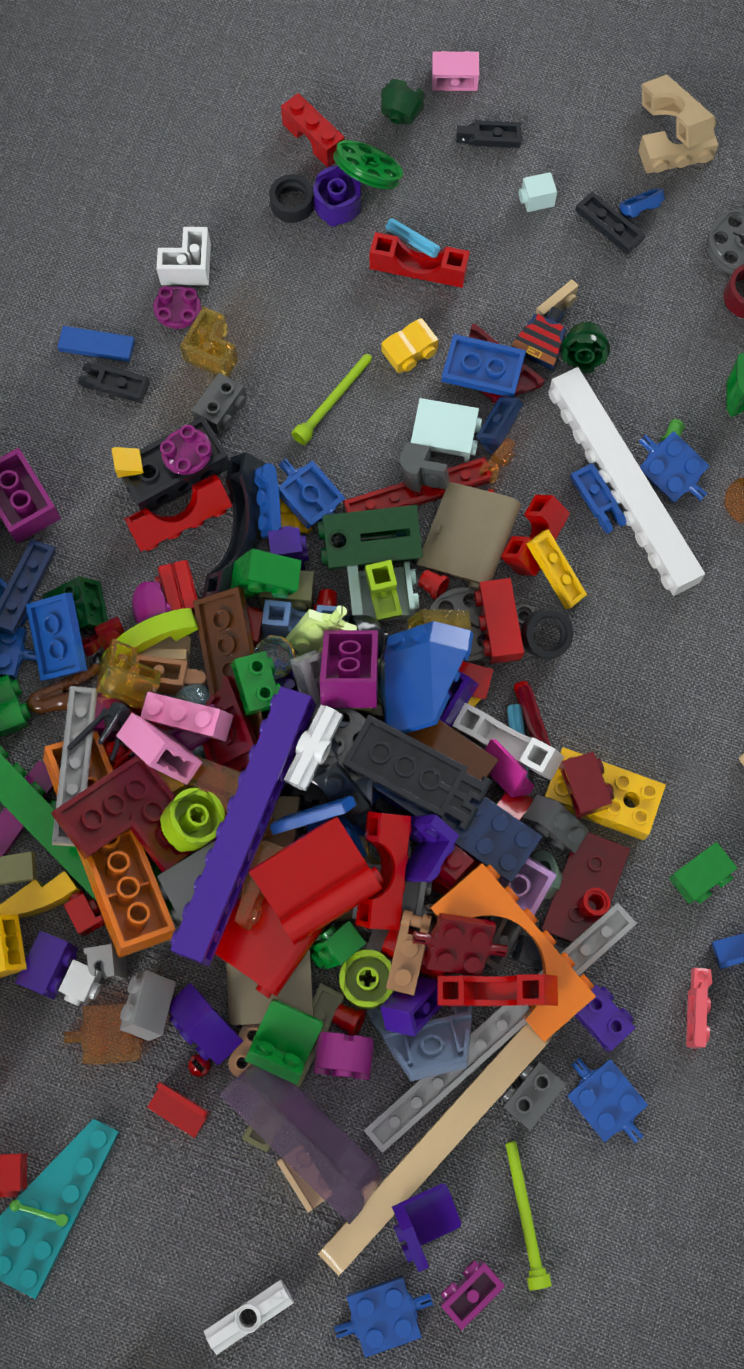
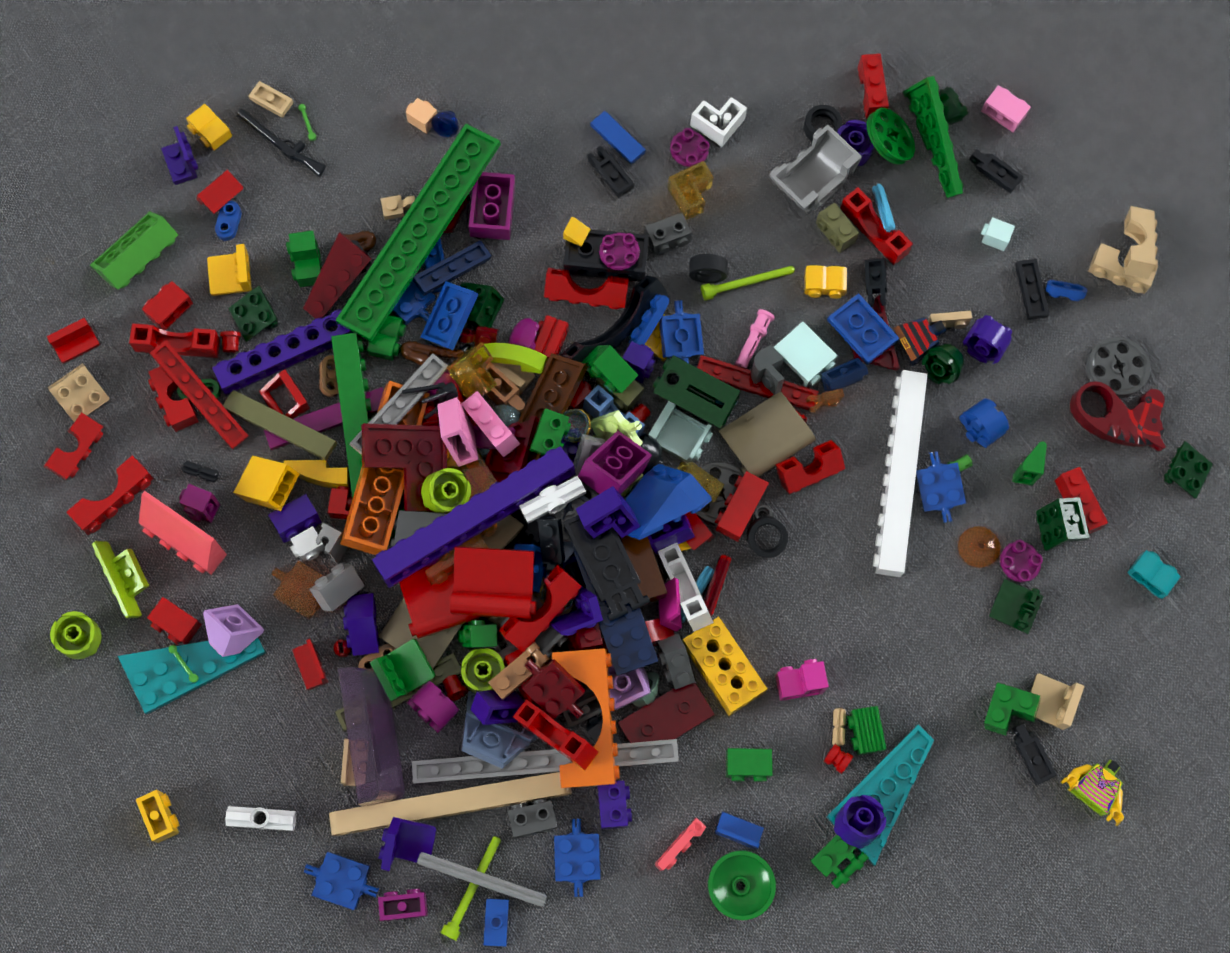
camera: 30 degrees right, 0 degrees up
(64, 1136) = (230, 629): none -> lavender slope
(286, 409) = (708, 268): none -> black tyre
(312, 815) = (521, 541): blue tile -> none
(322, 241) = (818, 170): none -> light grey cylinder
(381, 439) = (757, 331): none -> bright pink pin
(382, 286) = (837, 227): none -> olive brick
(382, 721) = (608, 511): none -> dark purple brick
(383, 590) = (679, 432): lime brick -> none
(400, 129) = (934, 132): none -> green wing
(433, 583) = (719, 451): red piece -> none
(458, 311) = (876, 280): none -> black hinge
(529, 1200) = (481, 879): none -> light grey axle
(556, 569) = (806, 499): yellow tile -> none
(577, 1233) = (496, 922): none -> blue plate
(586, 784) = (712, 650): dark red brick -> none
(597, 496) = (874, 470): blue hinge -> none
(601, 900) = (668, 728): red piece -> none
(609, 296) = (987, 340): none -> dark purple brick
(667, 376) = (984, 423): none -> blue brick
(695, 746) = (802, 682): none -> dark pink brick

